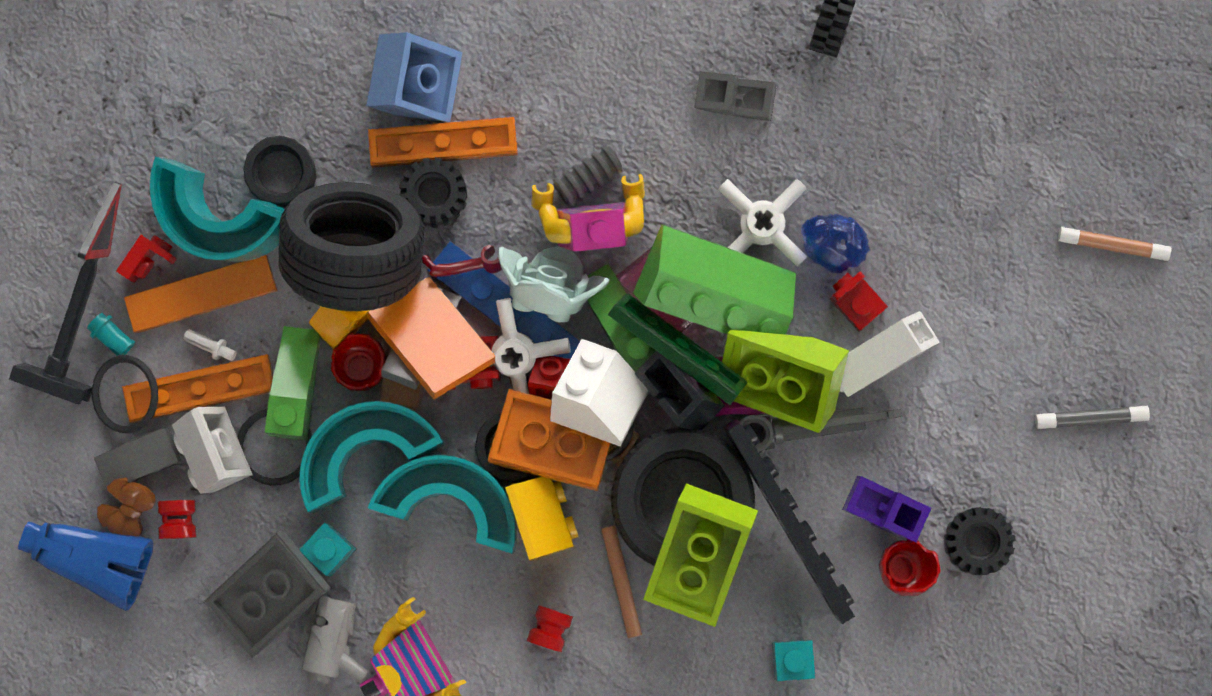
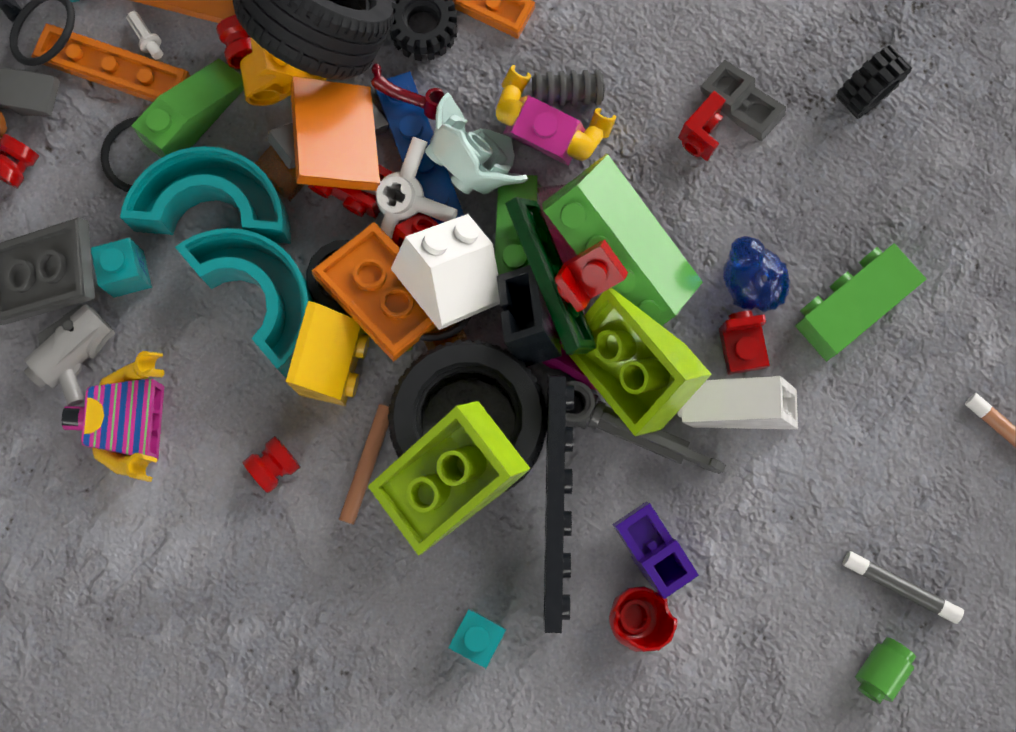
camera: 25 degrees right, 5 degrees down
(210, 449) = (81, 116): white slope -> none
(290, 303) = (236, 40): none -> red wheel
(358, 362) = (255, 119): red hair -> none
(709, 333) = (589, 275): none -> red bracket
(716, 134) = (697, 129): none -> red bracket
(774, 211) = (707, 211): white bar -> none
(927, 210) = (858, 300): none -> bright green brick
(1001, 535) = (750, 632): black tyre -> none
(1114, 491) = (885, 670): none -> bright green brick

